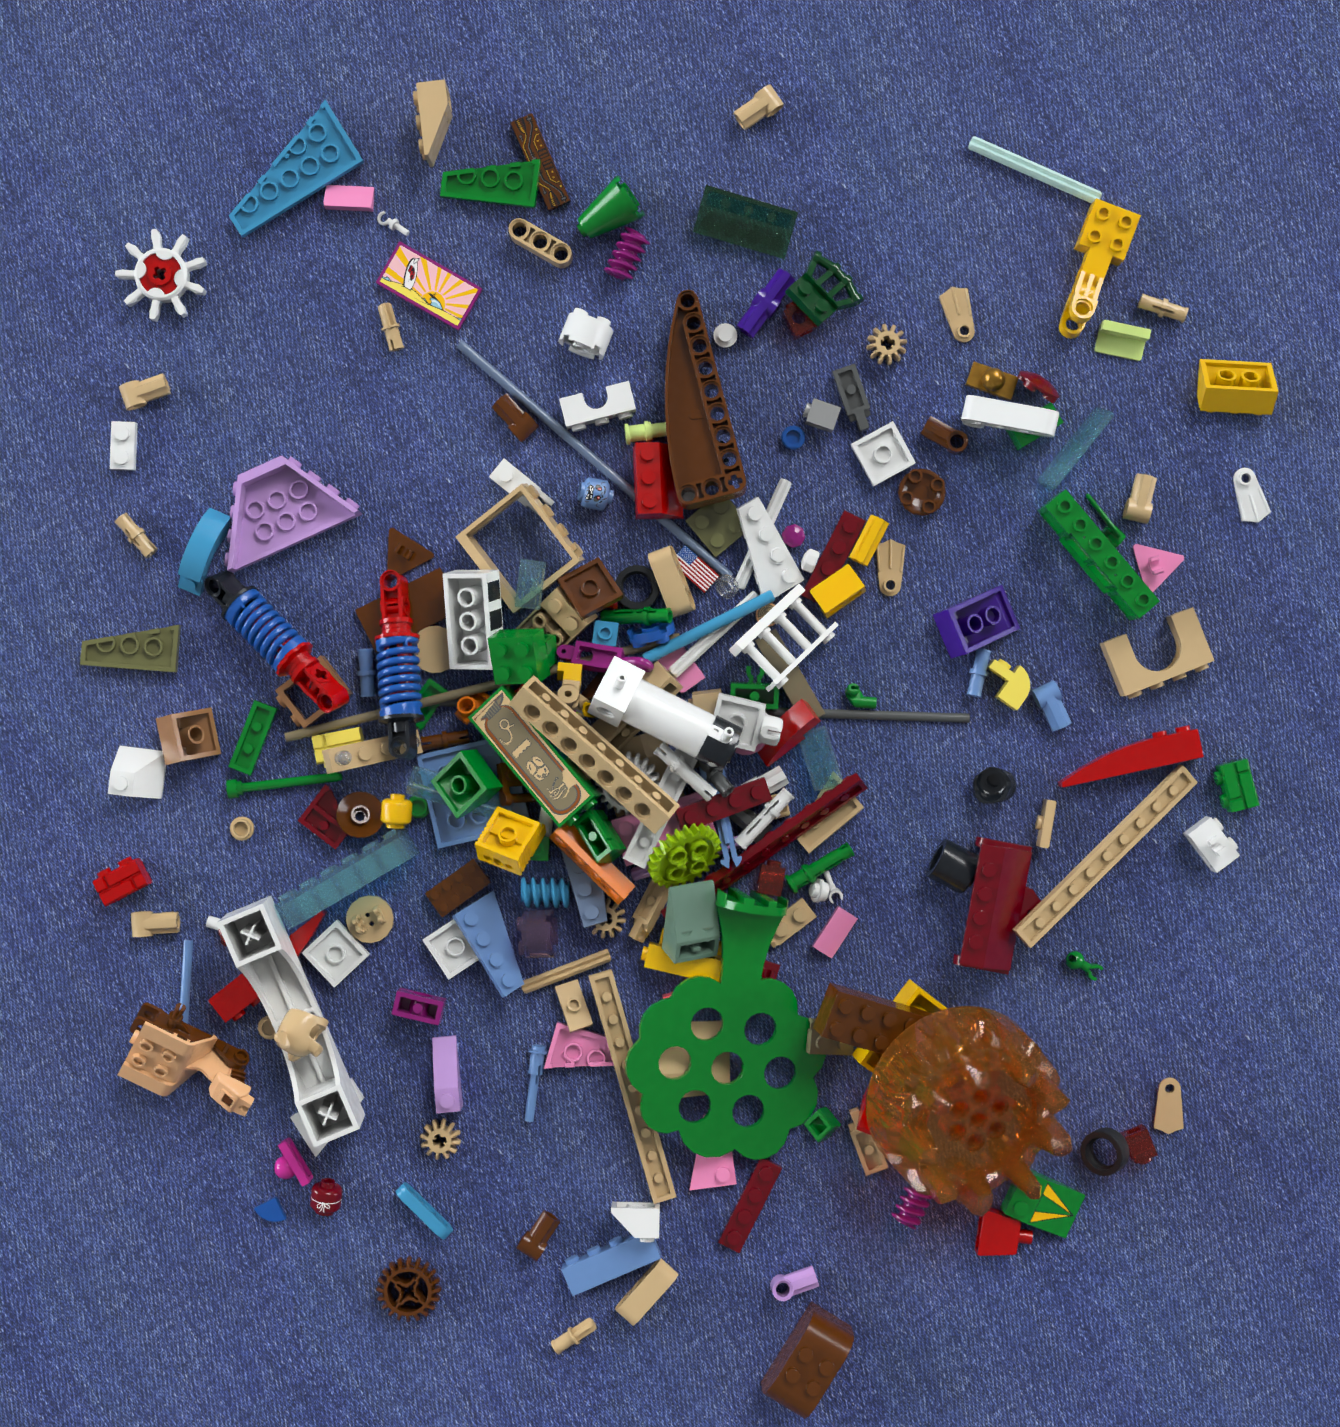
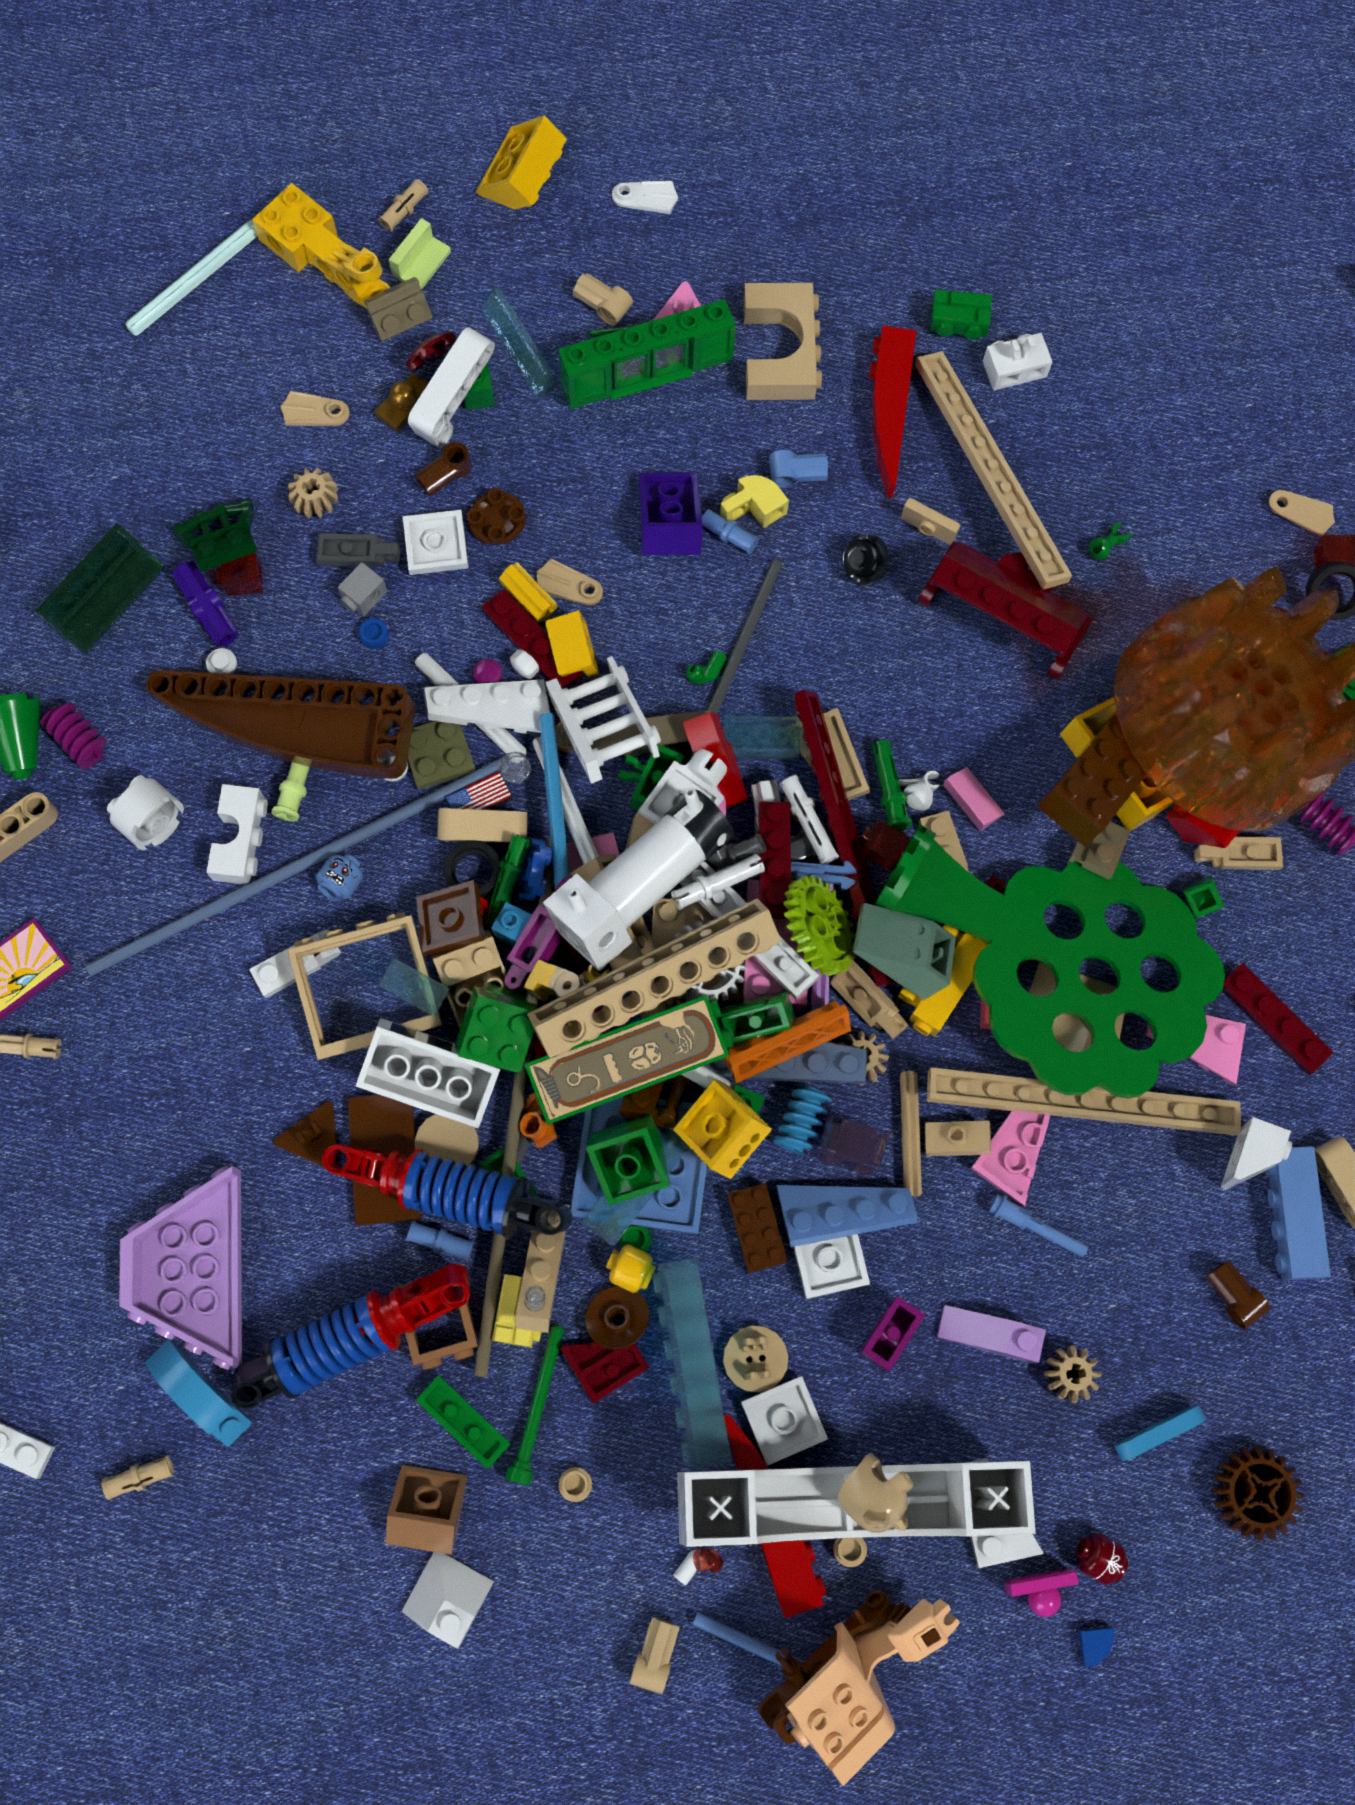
camera: 70 degrees left, 15 degrees down
(121, 881) = (582, 1679): red brick -> none
(142, 650) = (289, 1529): olive wing -> none
(445, 740) = (565, 1172): reddish brown pin -> none
(518, 422) = (215, 934): reddish brown piece -> none
(654, 483) = (355, 802): red slope -> none
(953, 866) = (944, 633): black piece -> none
(1066, 344) = (398, 309): none -> dark tan plate

